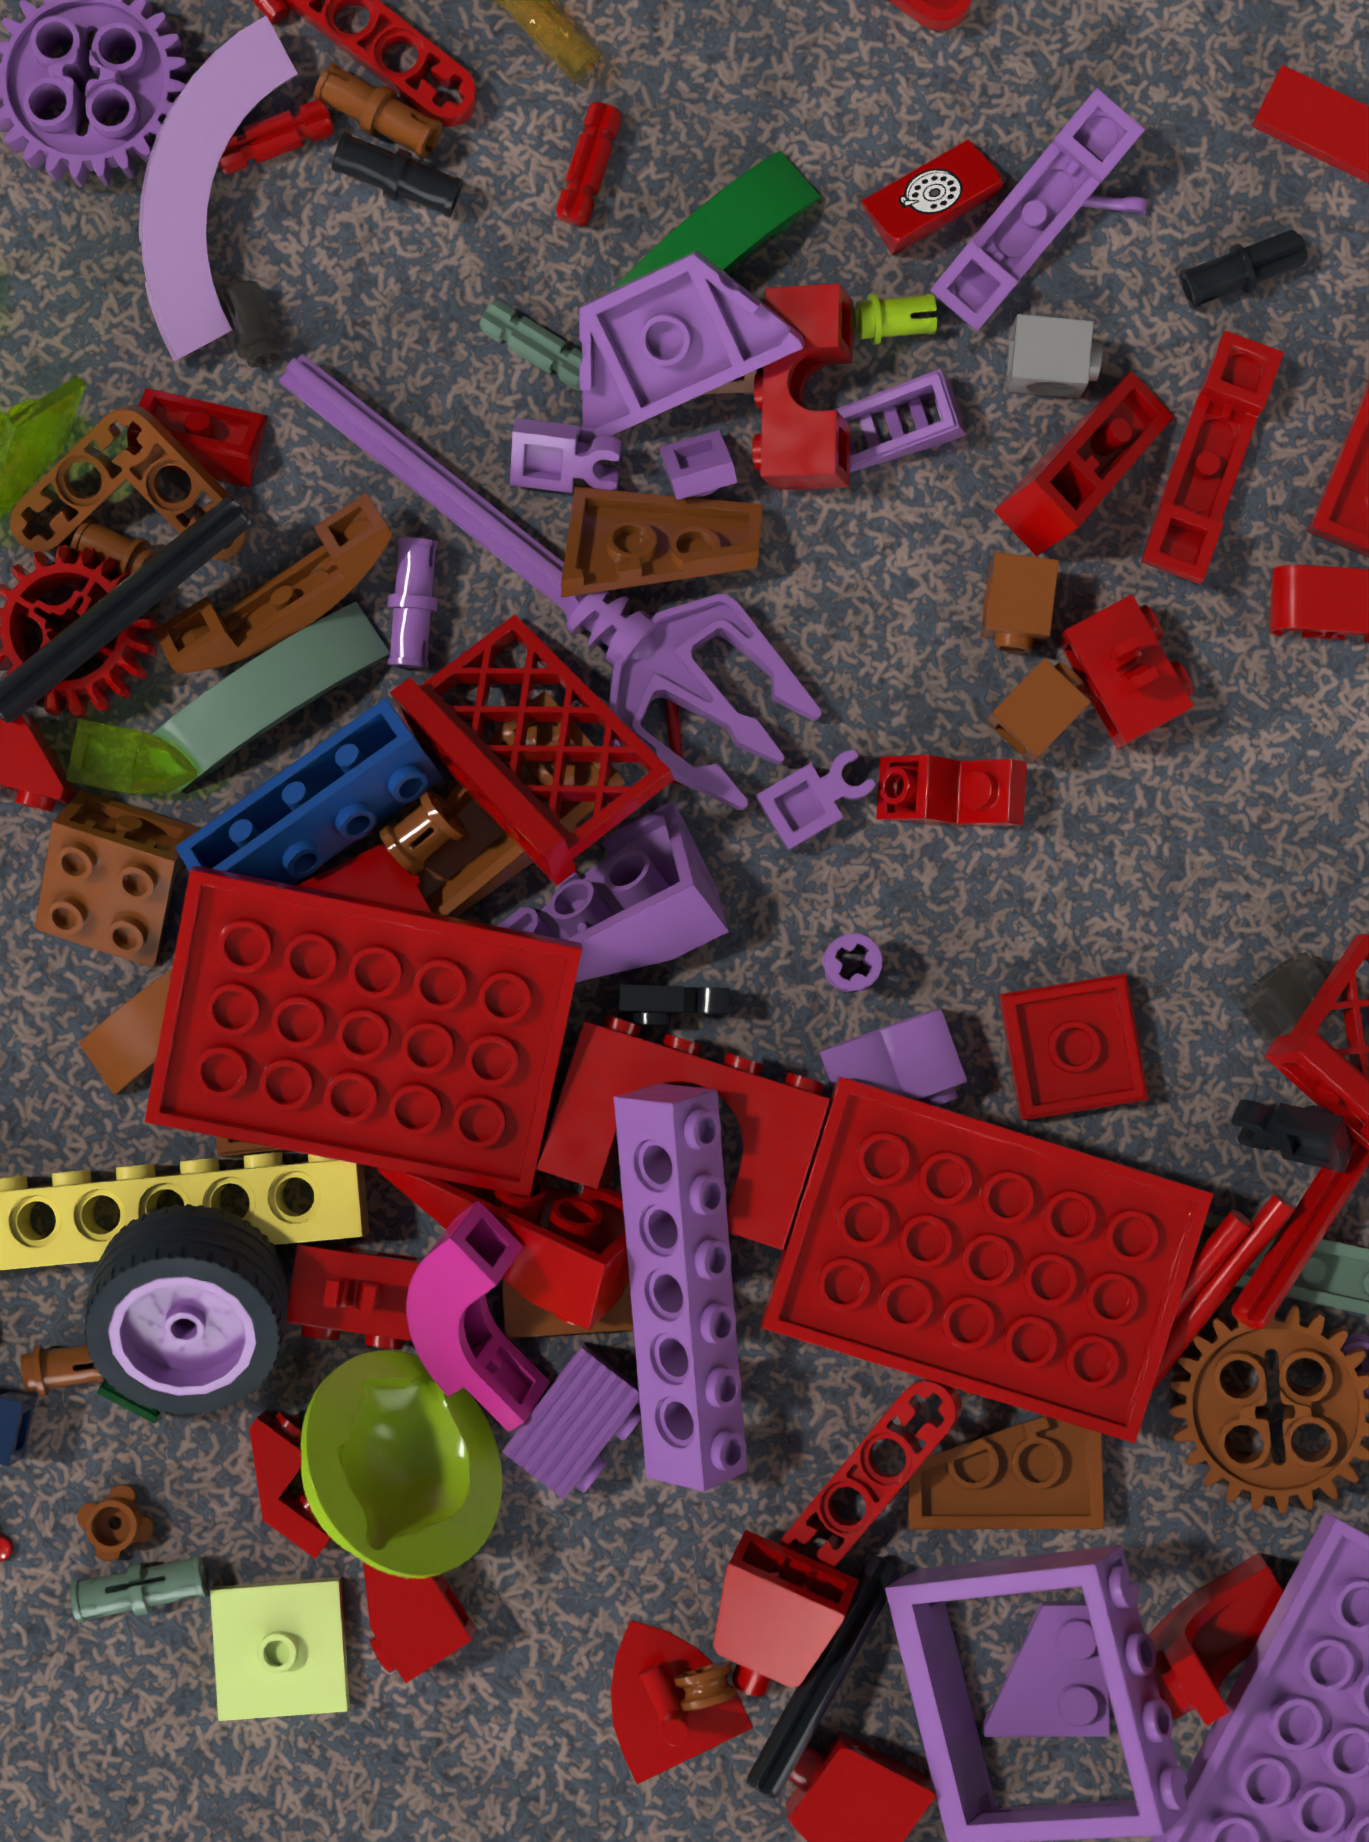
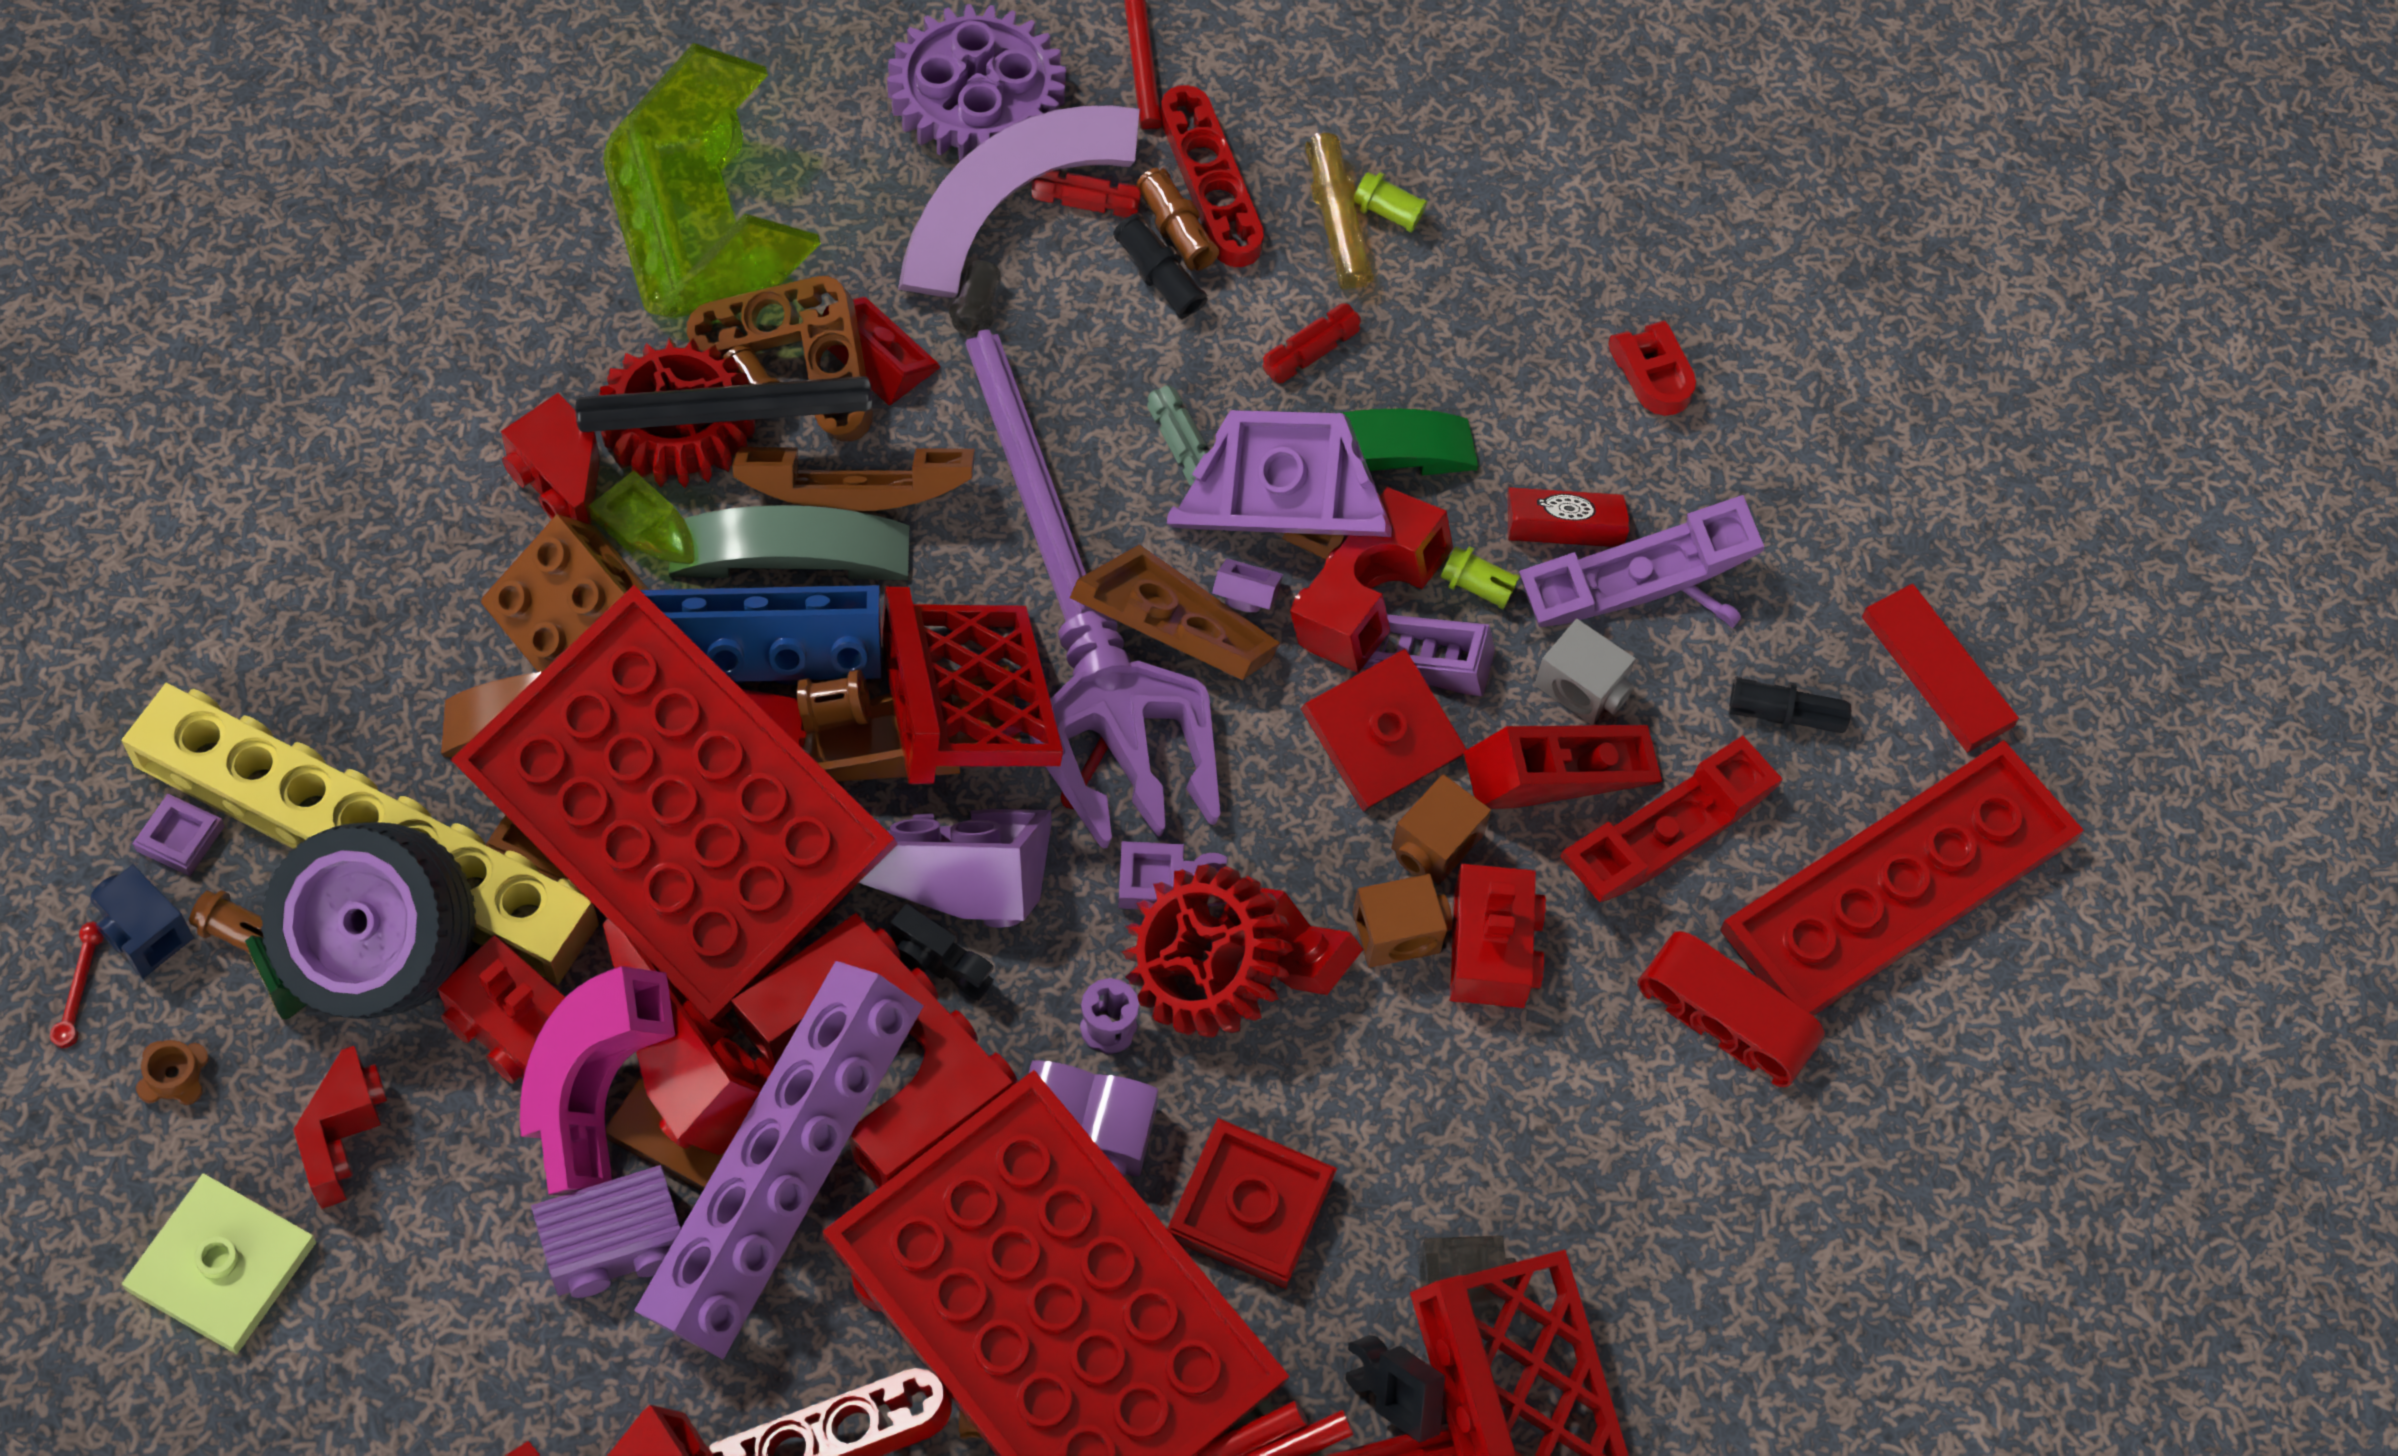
camera: 25 degrees right, 25 degrees down
(138, 1589) = (146, 1134): sand green pin -> none
(400, 1466) = (439, 1146): lime piece -> none
(412, 602) = (952, 548): medium lavender pin -> none
(414, 1621) = (360, 1275): red slope -> none
(551, 457) = (1136, 514): medium lavender plate -> none
(908, 531) = (1383, 729): none -> red plate
(933, 895) = (1162, 959): none -> red gear

